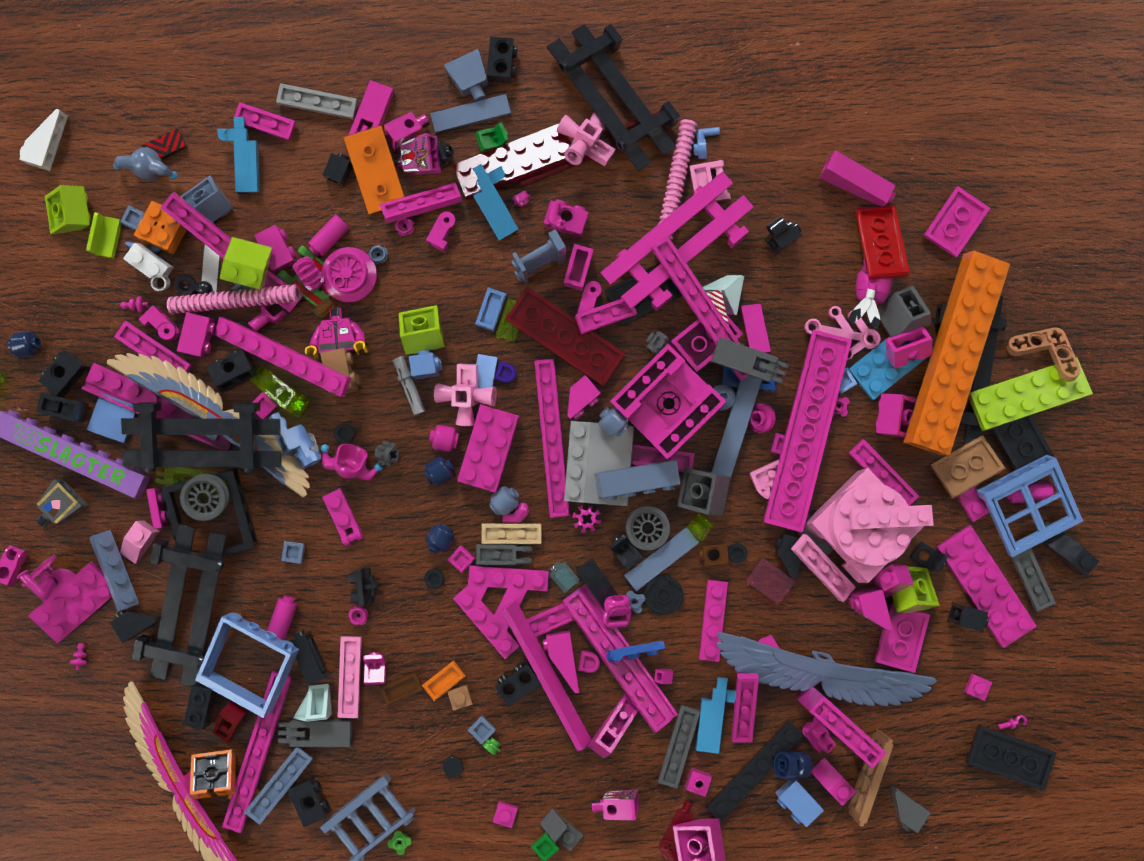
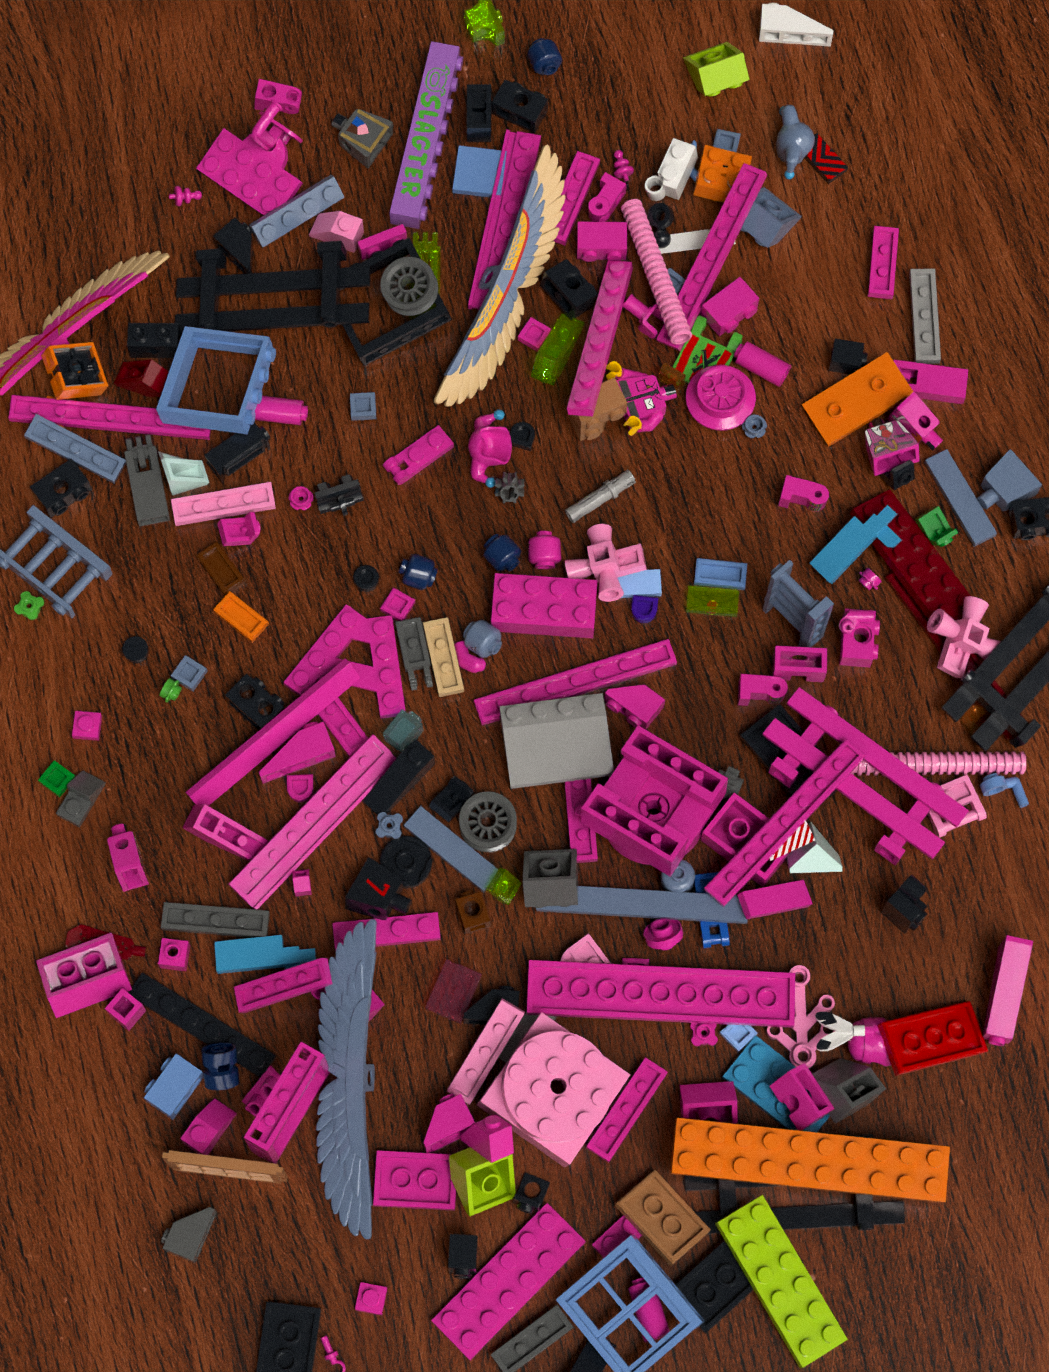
camera: 75 degrees right, 15 degrees down
(104, 236) = (695, 114): lime panel -> none
(245, 156) = (833, 249): dark azure piece -> none
(246, 263) = (702, 273): lime slope -> none
(246, 426) = (504, 312): black fence -> none
(298, 441) = (499, 380): medium blue plate -> none
(308, 273) = (709, 348): dark pink gear -> none
(404, 231) = (798, 443): dark pink plate -> none
(421, 203) = (831, 460): dark pink plate -> none
(421, 330) = (672, 495): lime slope -> none
(425, 365) = (629, 506): medium blue brick -> none
(460, 697) = (223, 640): medium nougat plate -> none
(562, 336) = (707, 667): dark red plate -> none
(587, 524) = (487, 749): dark pink piece -> none
(604, 316) = (745, 706): dark pink tile -> none
(613, 422) = (611, 740): sand blue head -> none
(617, 606) = (379, 800): dark pink piece -> none
(634, 651) = (327, 834): blue plate -> none
(636, 479) = (547, 786): sand blue brick -> none
(685, 622) = (376, 892): none -> black torso
(734, 827) = (125, 1009): none -> dark pink brick
(737, 552) = (480, 943): black tile -> none
(743, 358) = (731, 878): dark grey hinge -> none
(891, 517) = (572, 1103): bright pink plate -> none
(956, 222) = (988, 1136): dark pink plate -> none
(1048, 343) = (855, 1293): nougat beam -> none

